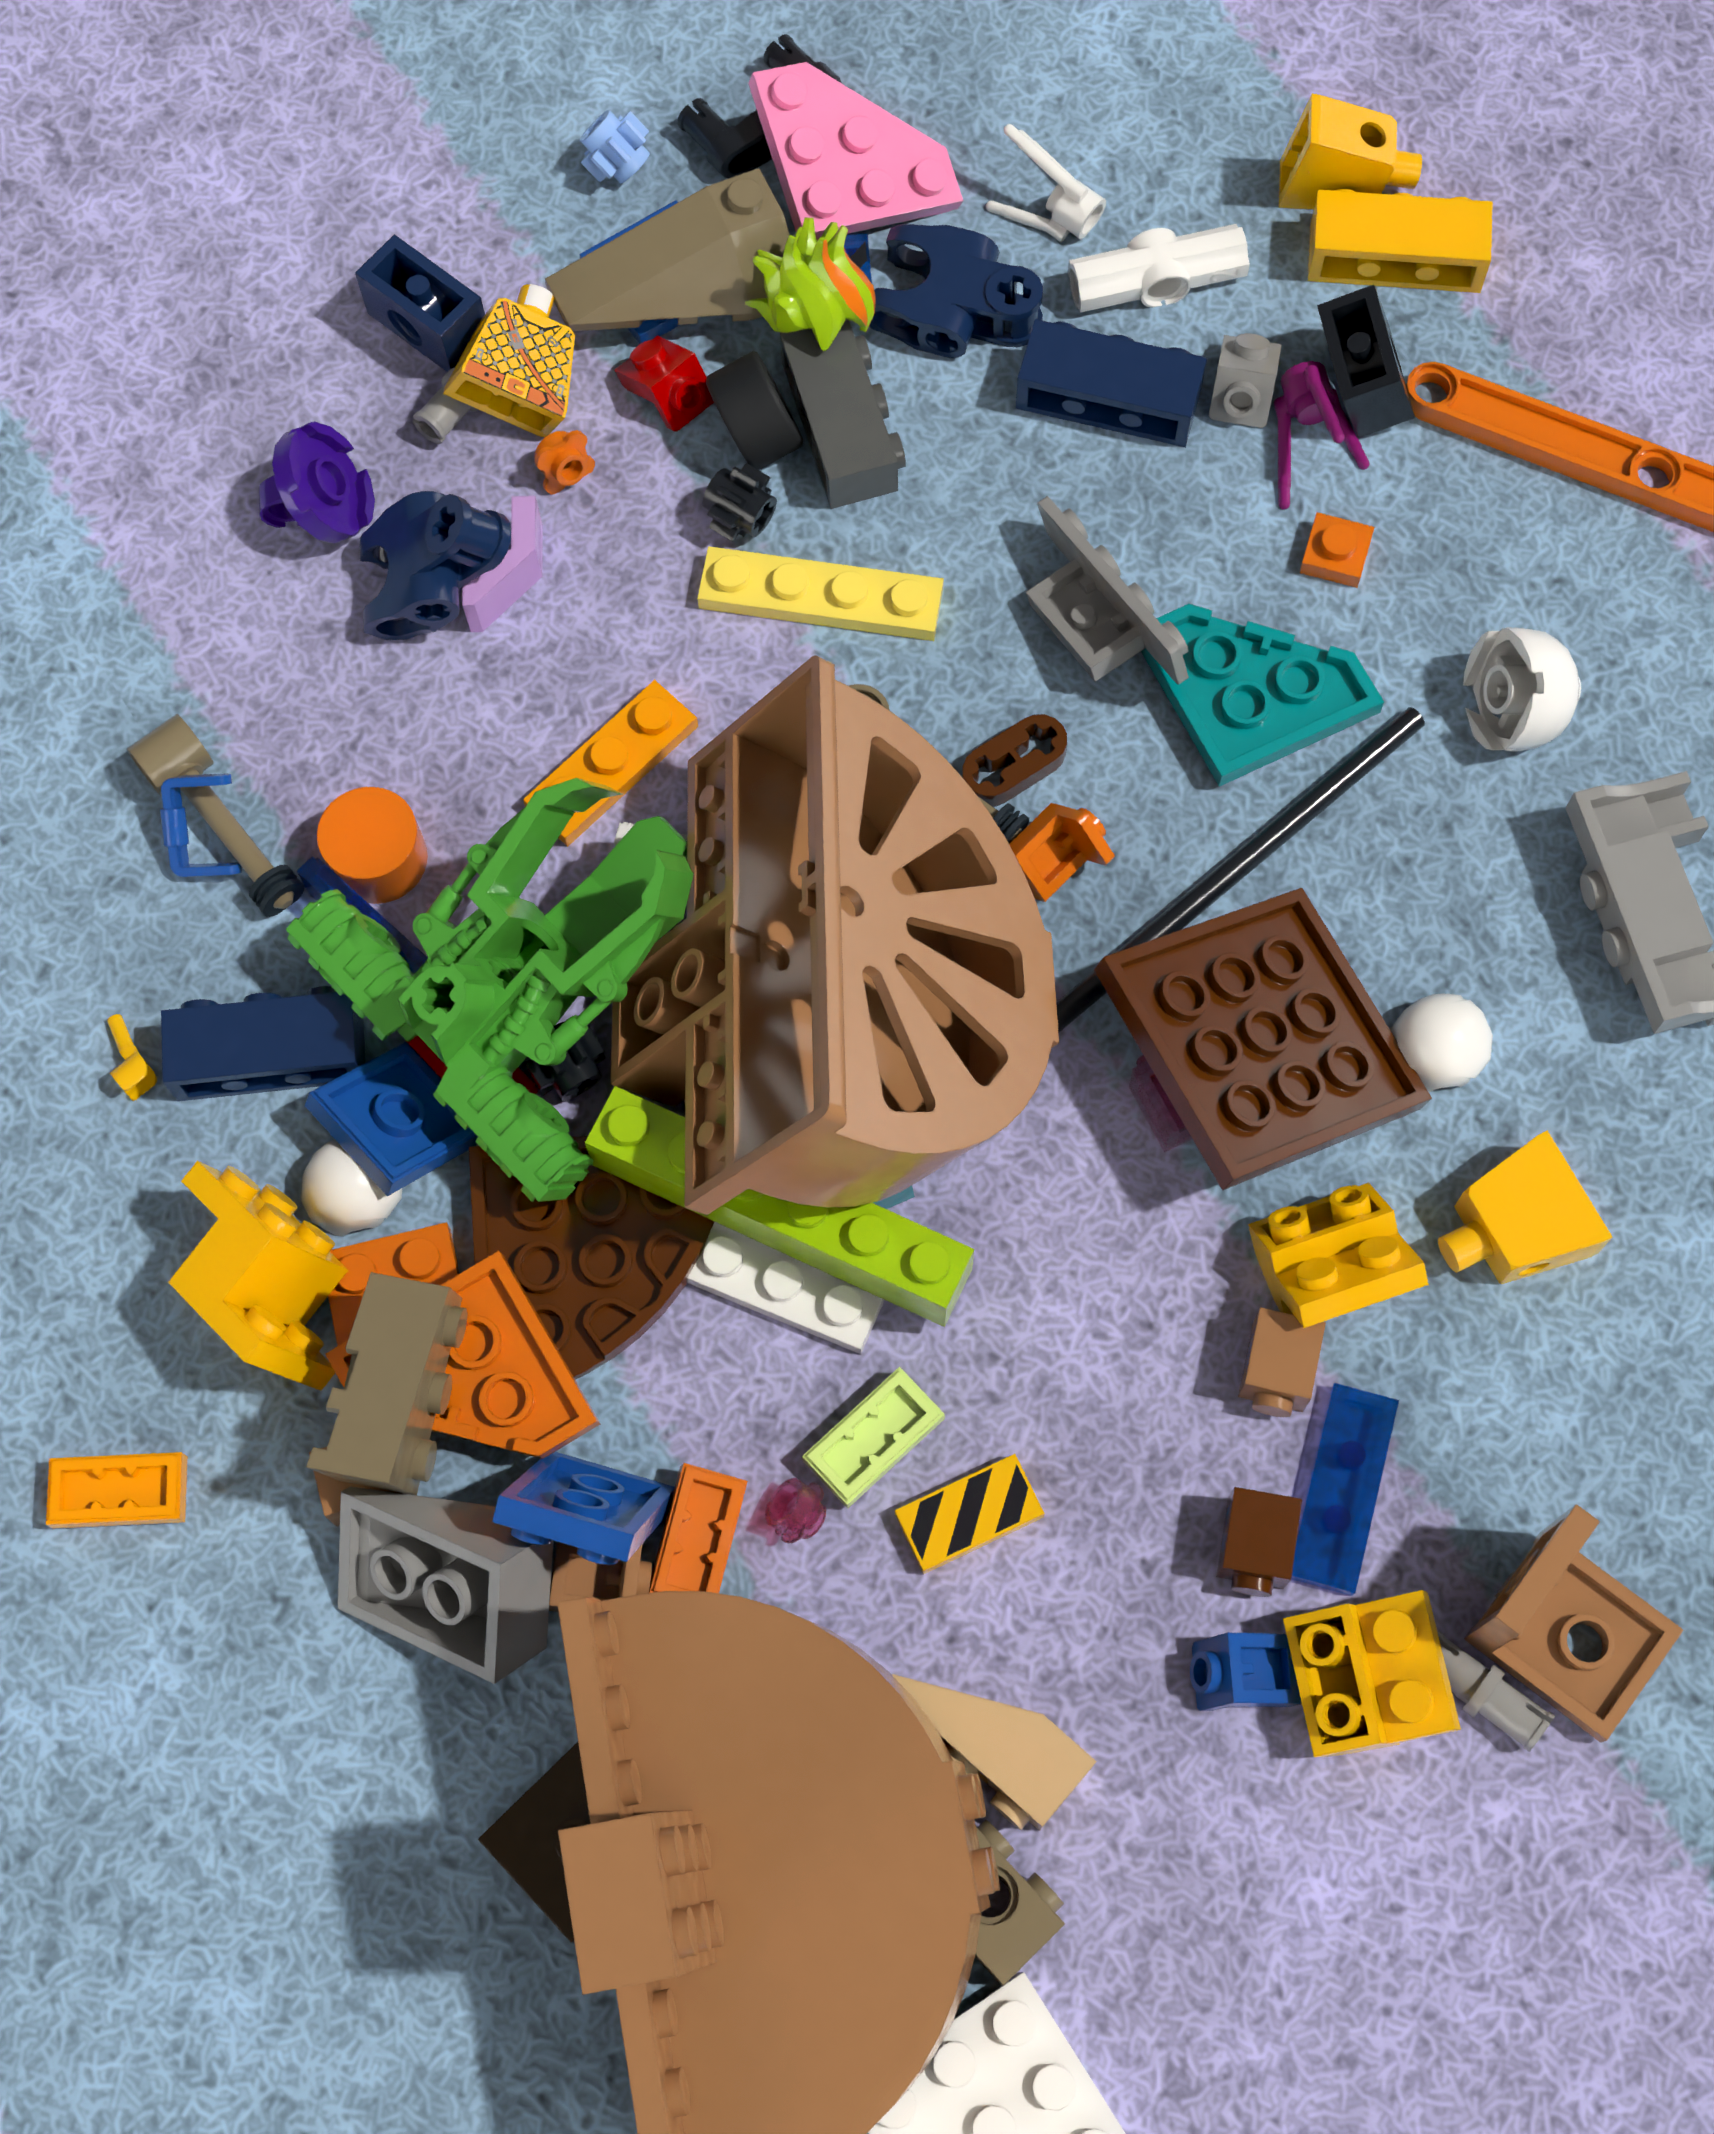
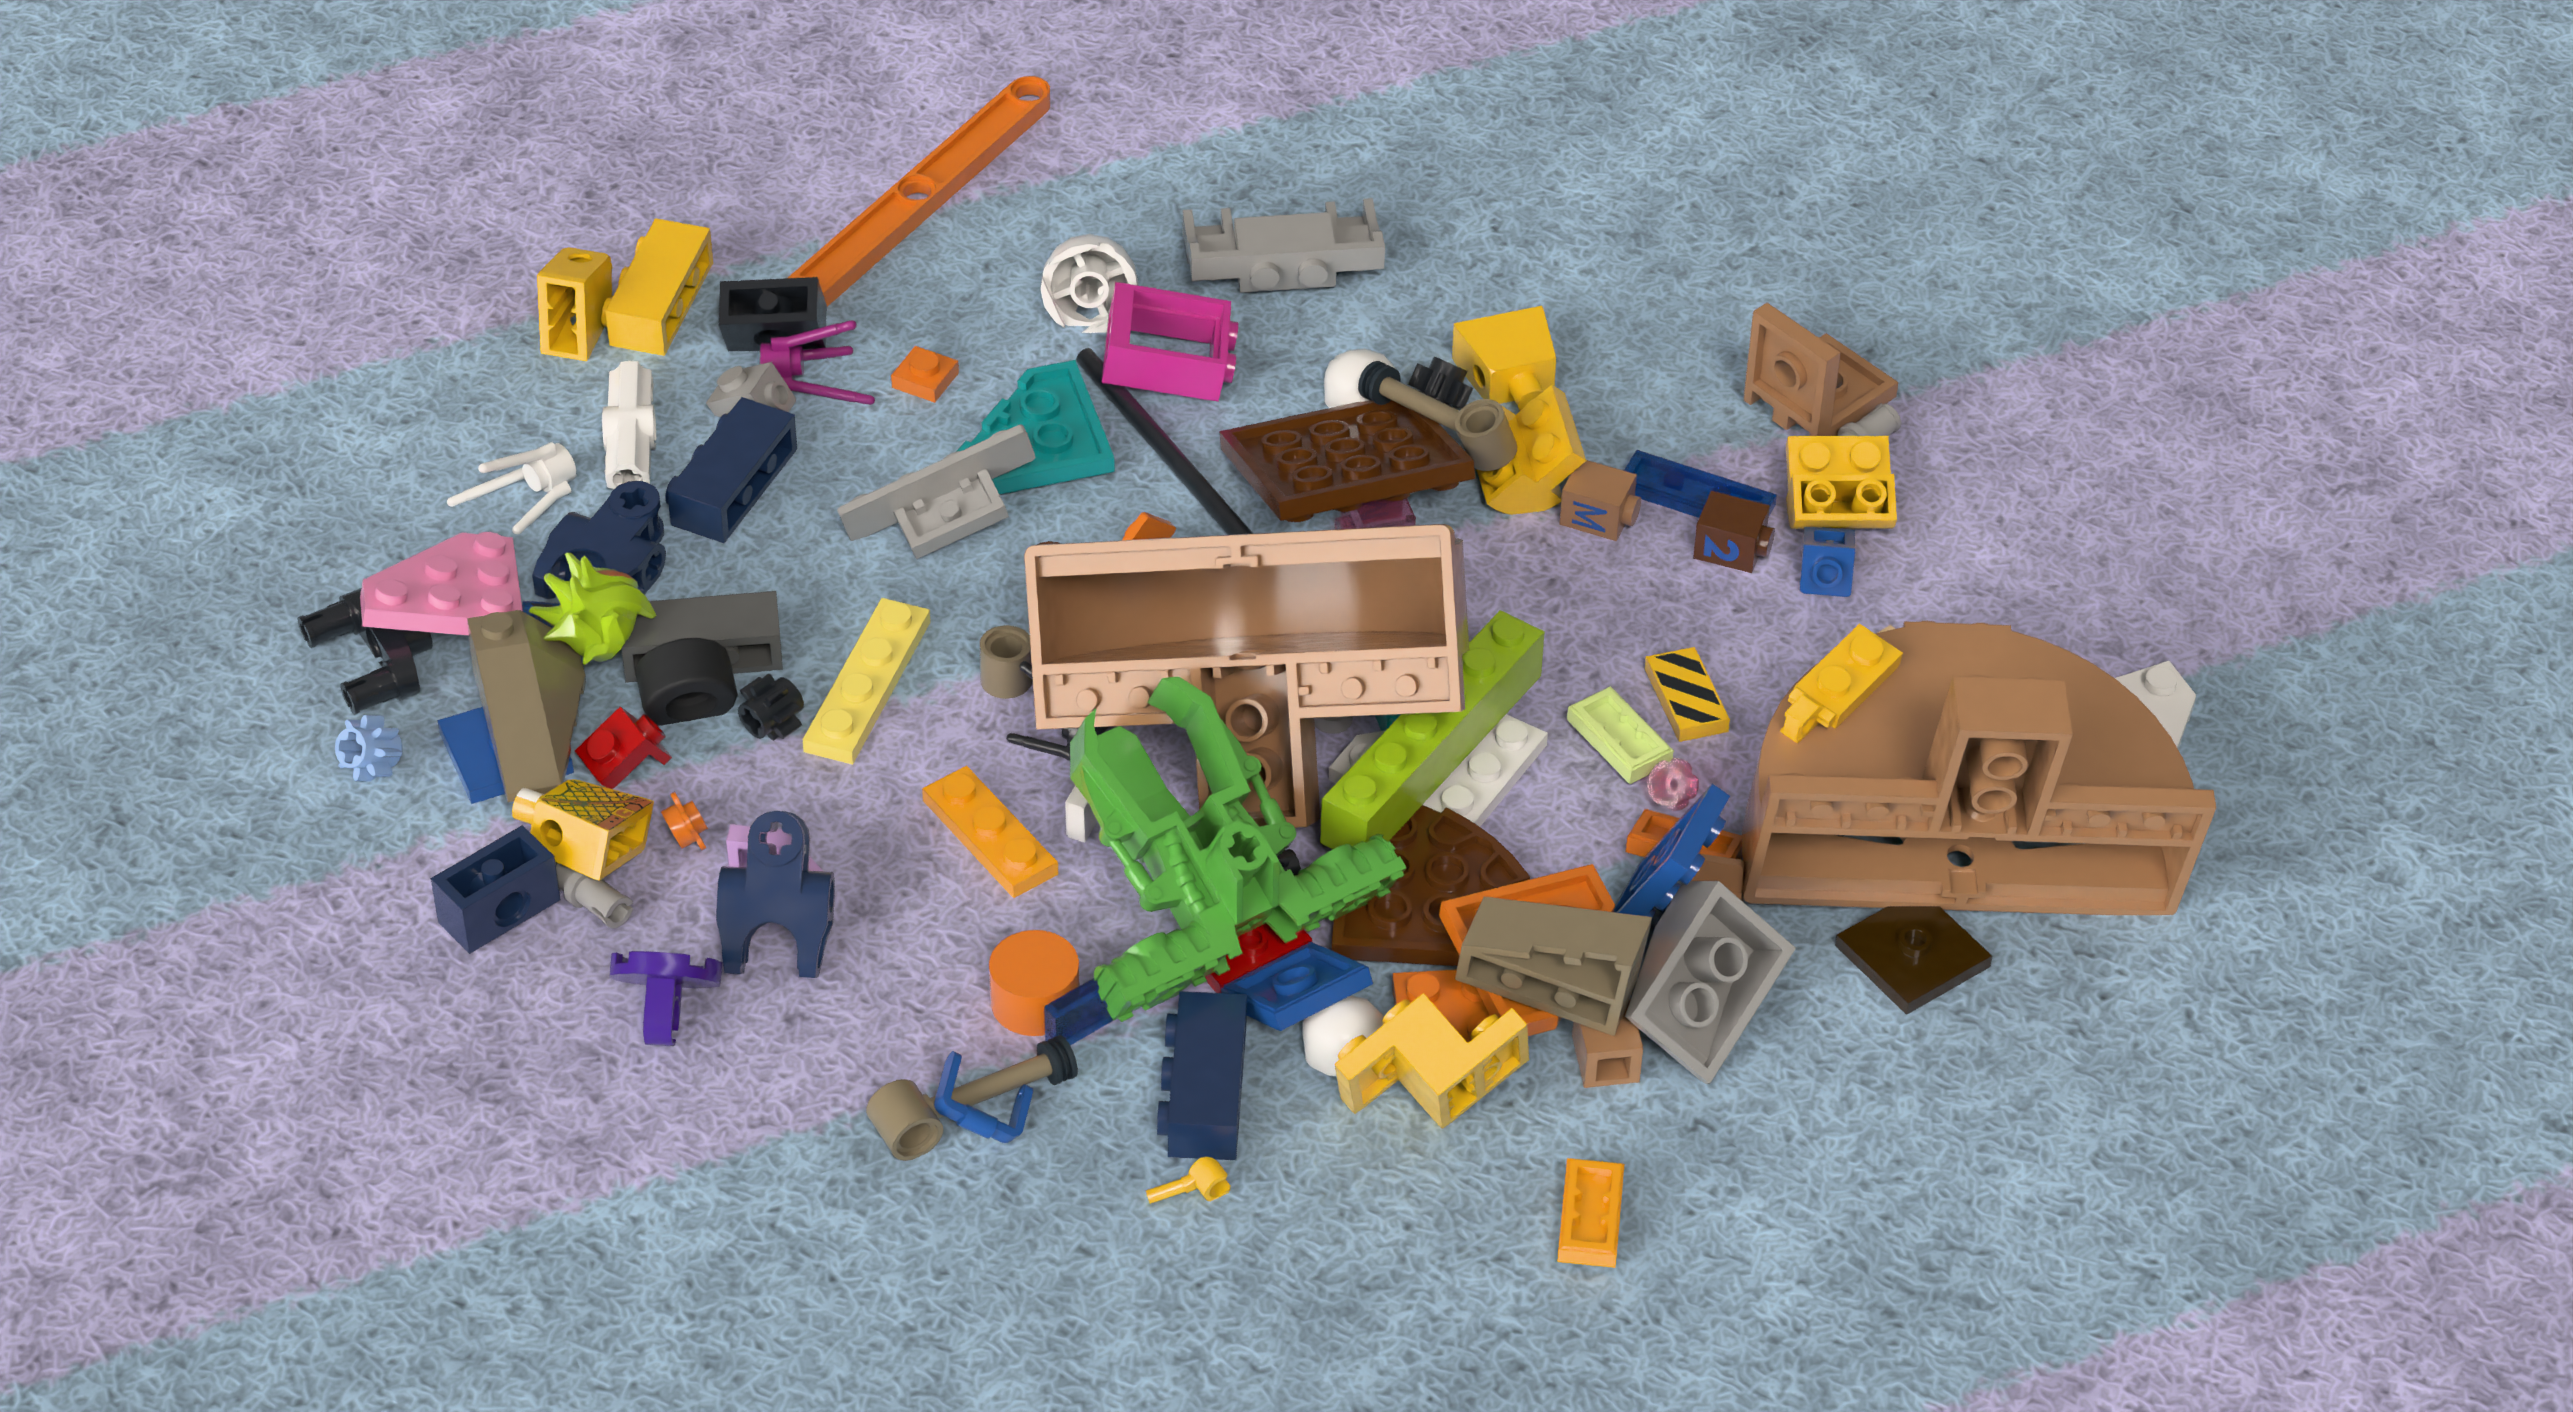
camera: 85 degrees left, 25 degrees down
(811, 1681) = (1840, 682): none -> yellow hinge
(1405, 1058) = (1479, 424): none -> dark tan piece
(1429, 736) = (1171, 316): none -> dark pink window
(1444, 1135) = (1442, 382): none -> black gear

